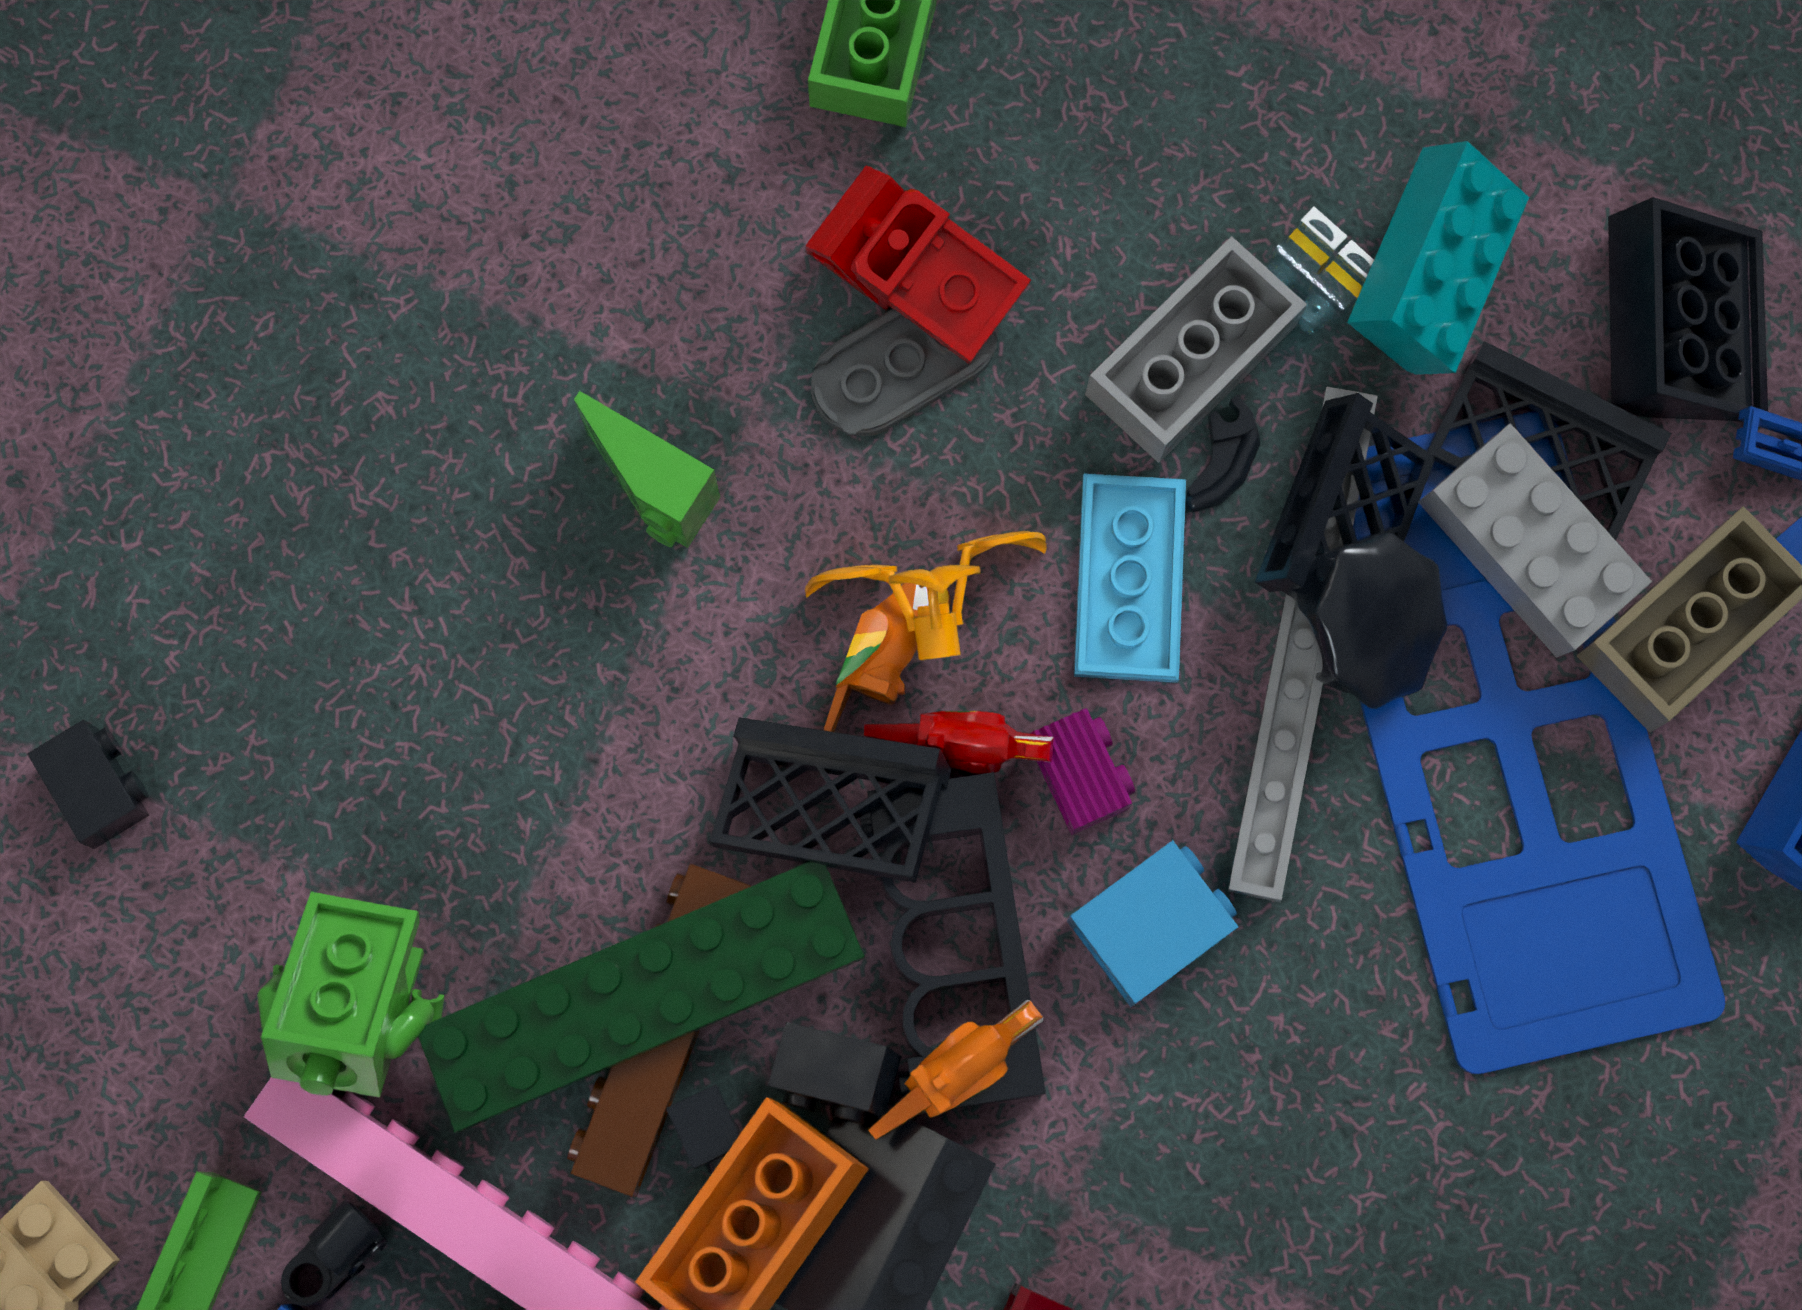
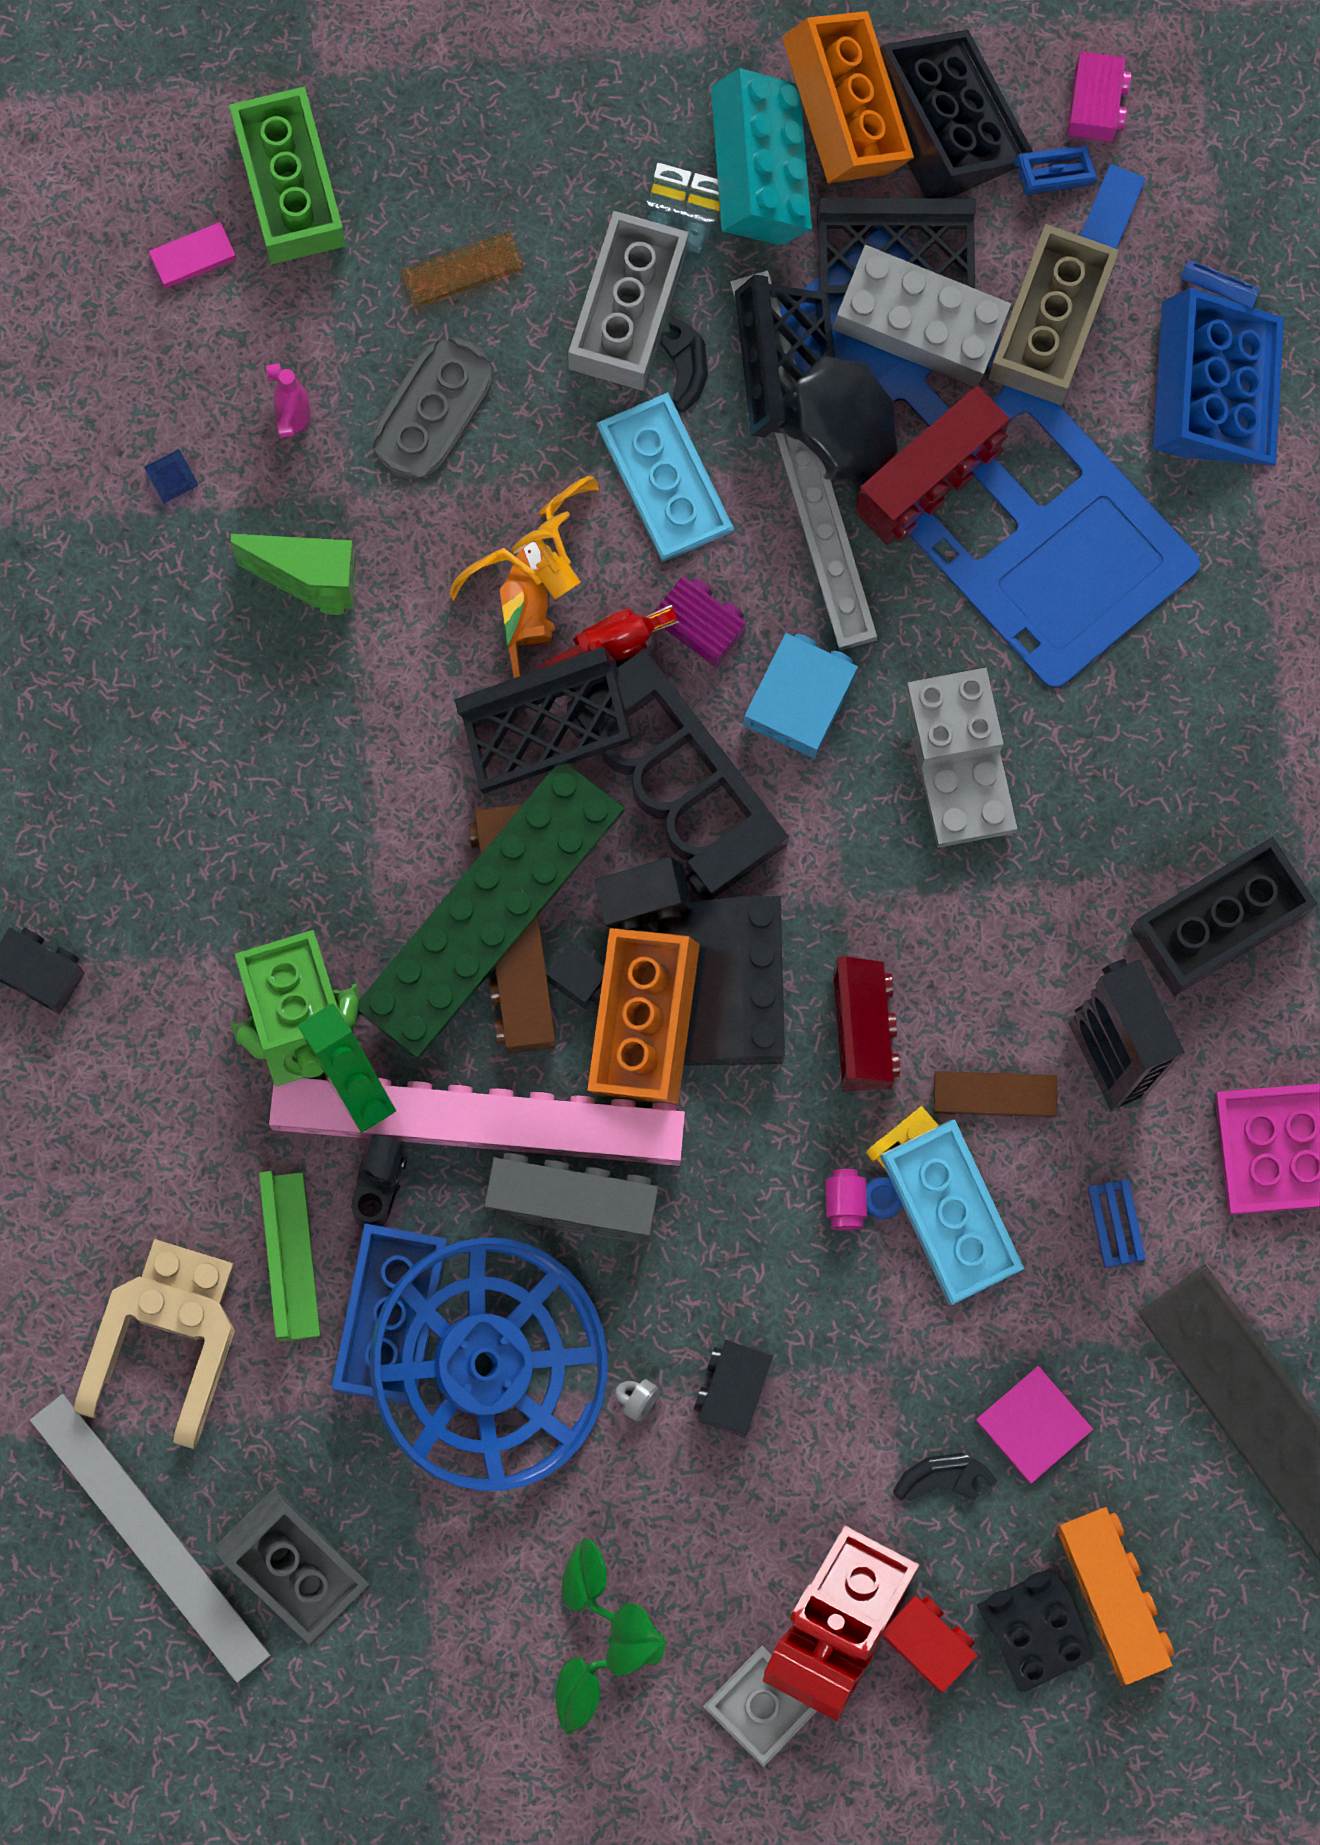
camera: 30 degrees left, 0 degrees up
(349, 1110) = (346, 1067): none -> green brick
(565, 290) = (171, 476): none -> clear blue tile
(728, 52) = (192, 255): none -> dark pink tile
(741, 273) = (290, 401): none -> dark pink piece
(917, 261) = (407, 334): red piece -> none
(960, 1067) = (725, 846): orange animal -> none
(1026, 218) = (462, 269): none -> clear orange tile
(1305, 1104) = (960, 757): none -> light grey piece
(1456, 729) = (933, 466): none -> dark red brick
(1579, 238) = (847, 96): none -> orange brick

